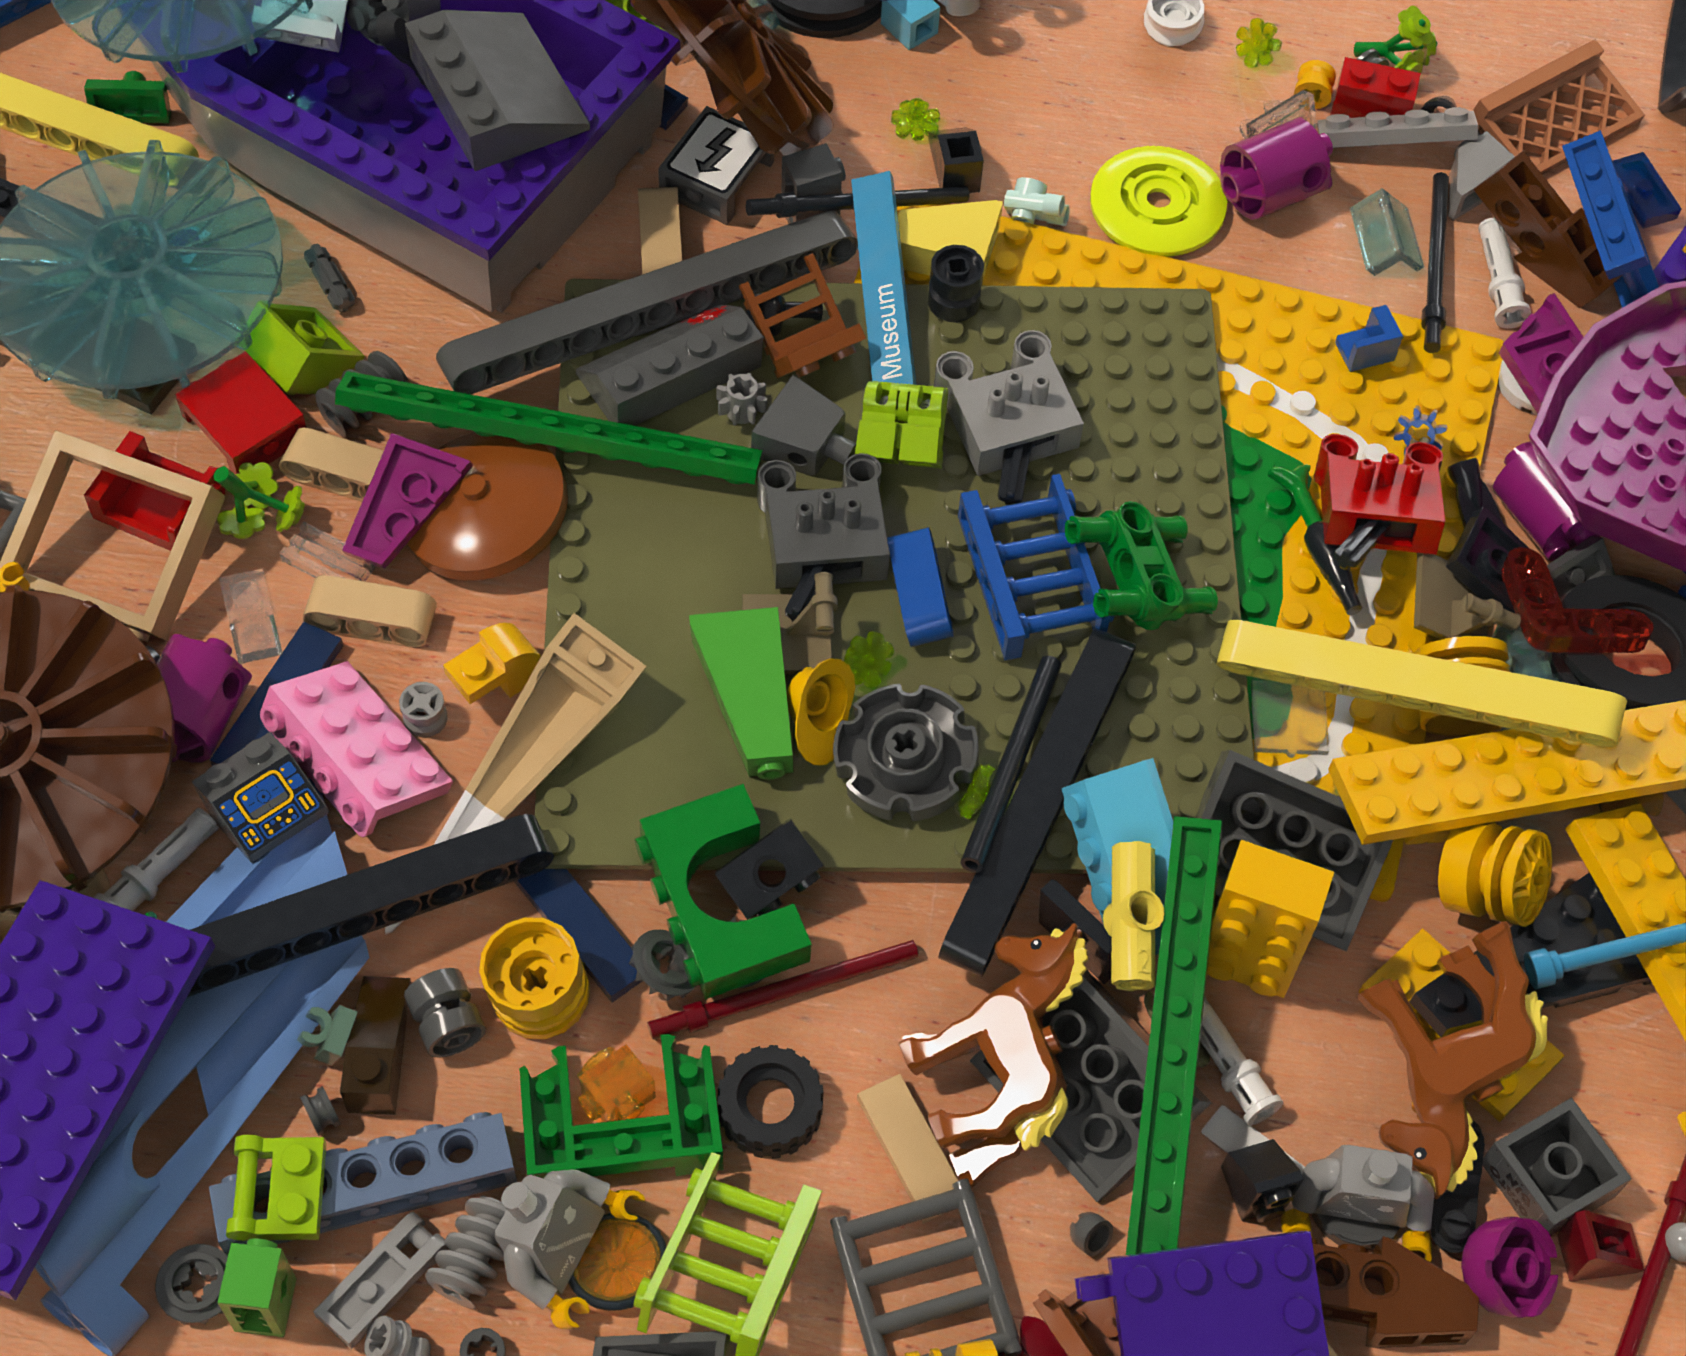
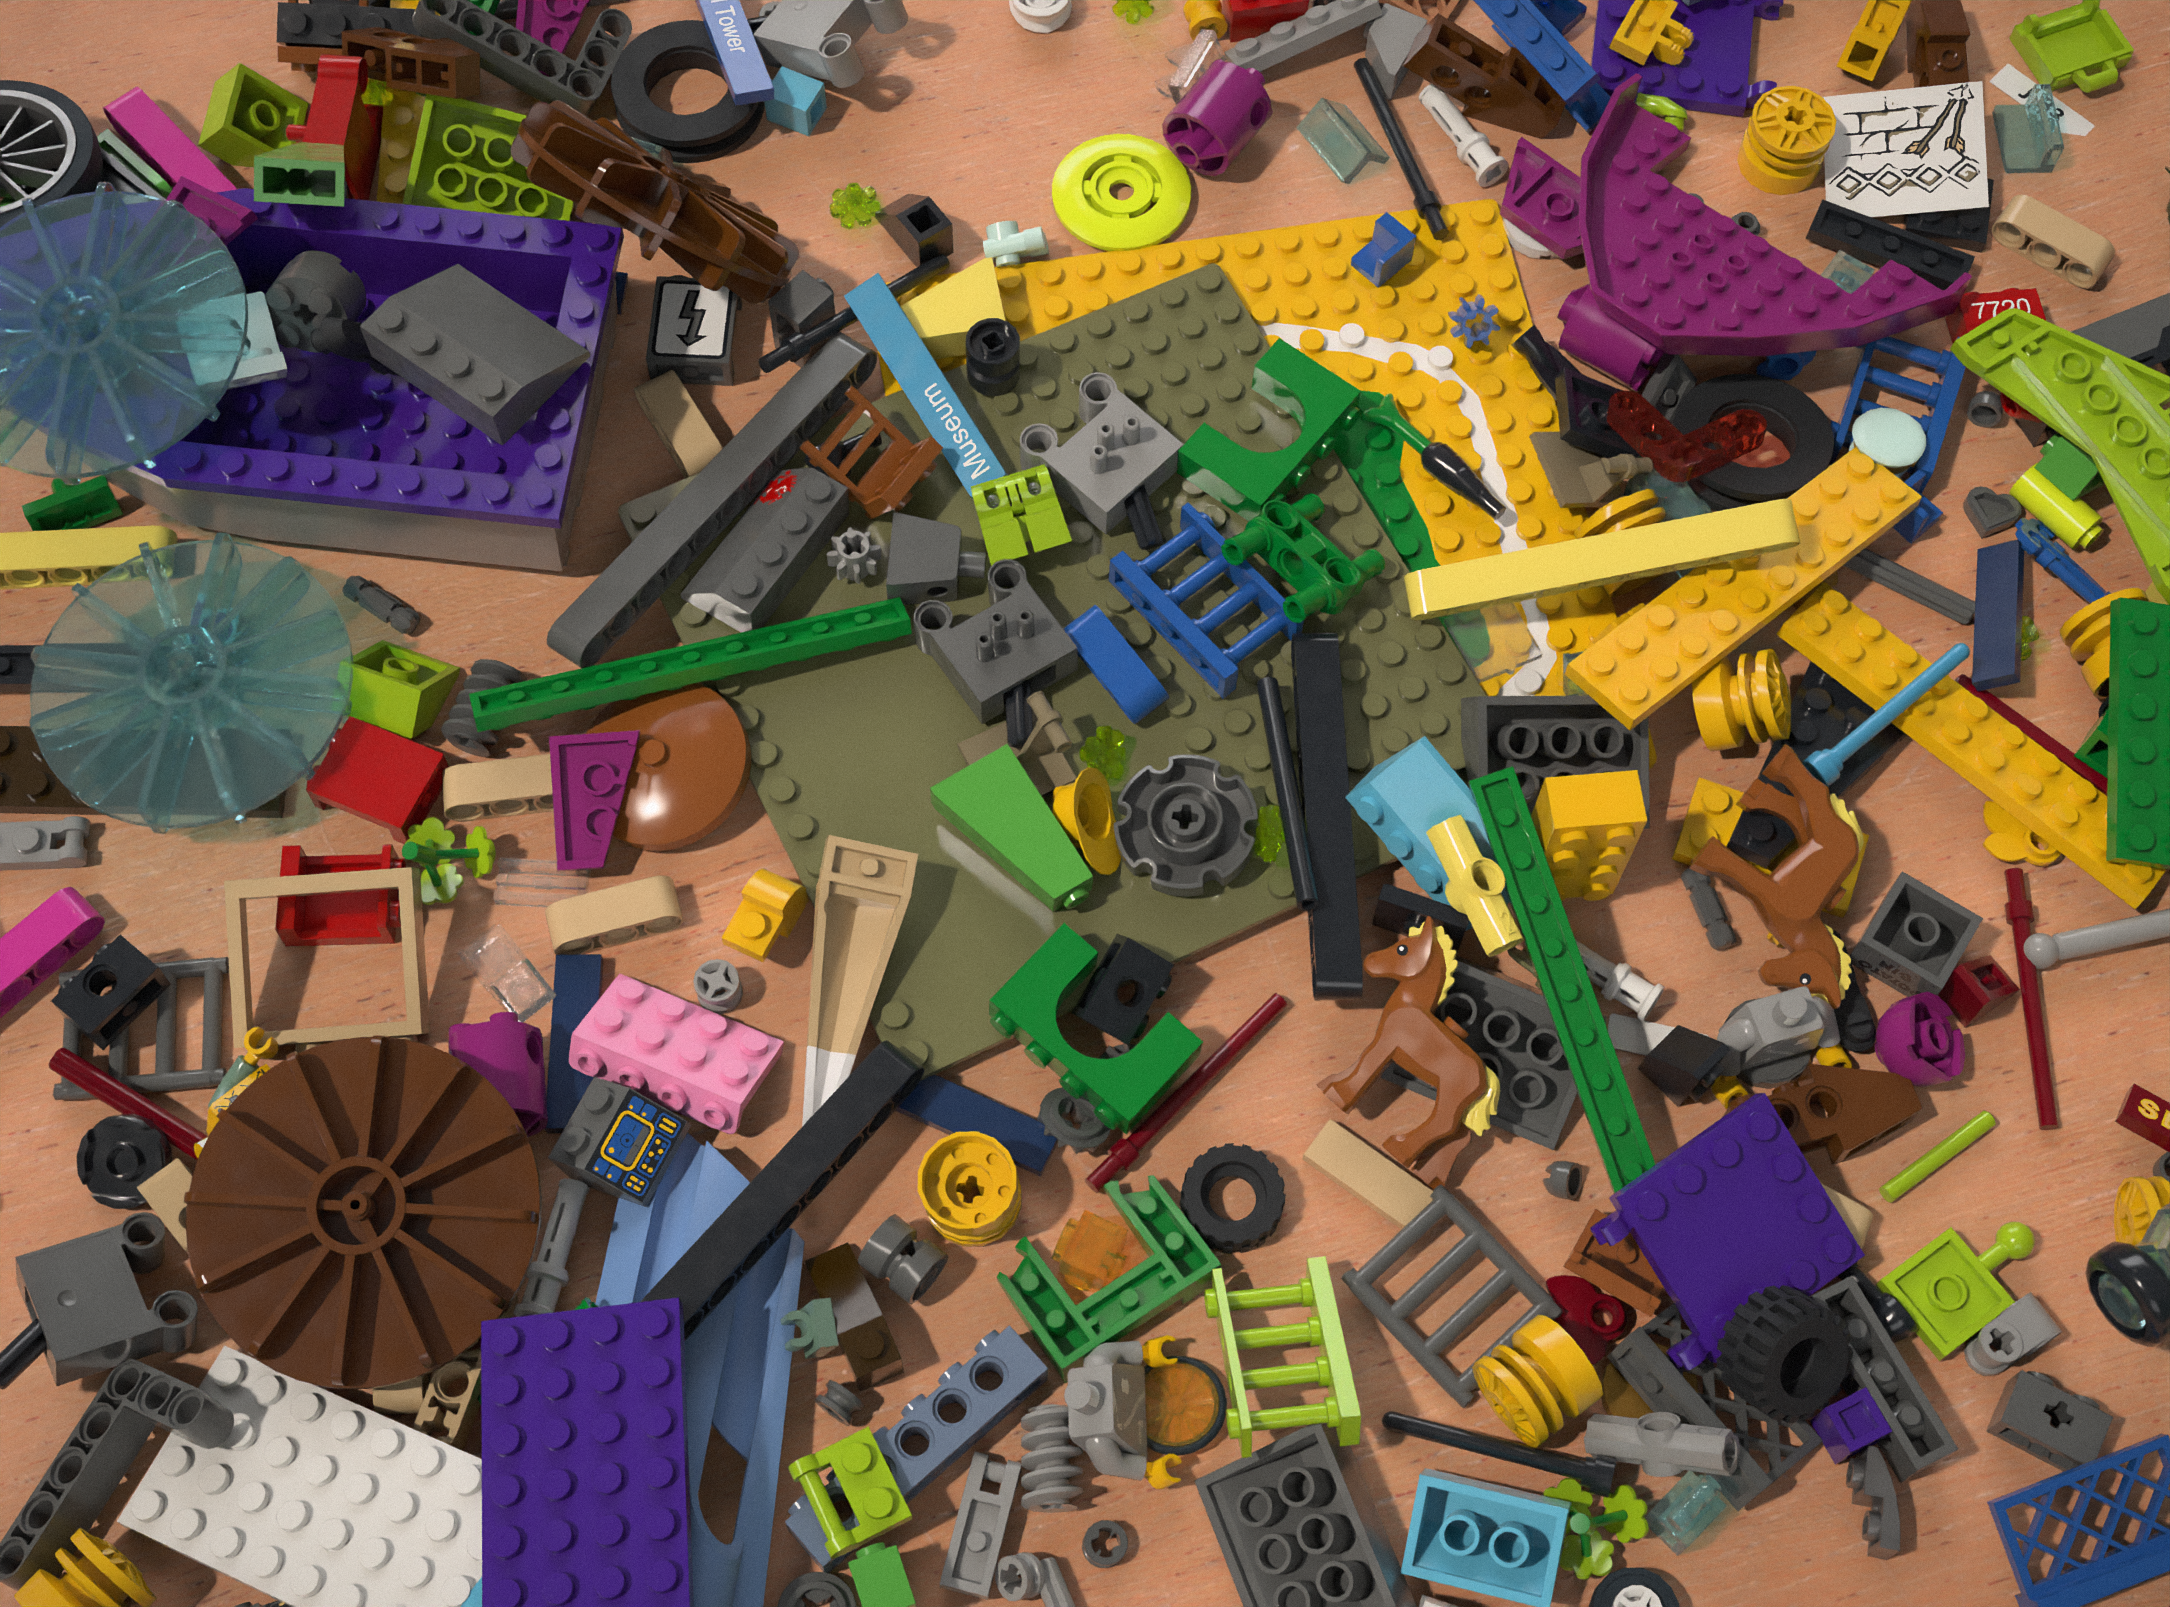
camera: 25 degrees left, 5 degrees up
(1227, 427) = (1249, 479): none -> green arch
(1367, 1053) = (1709, 909): none -> dark grey axle
(1379, 502) = (1476, 404): red piece -> none

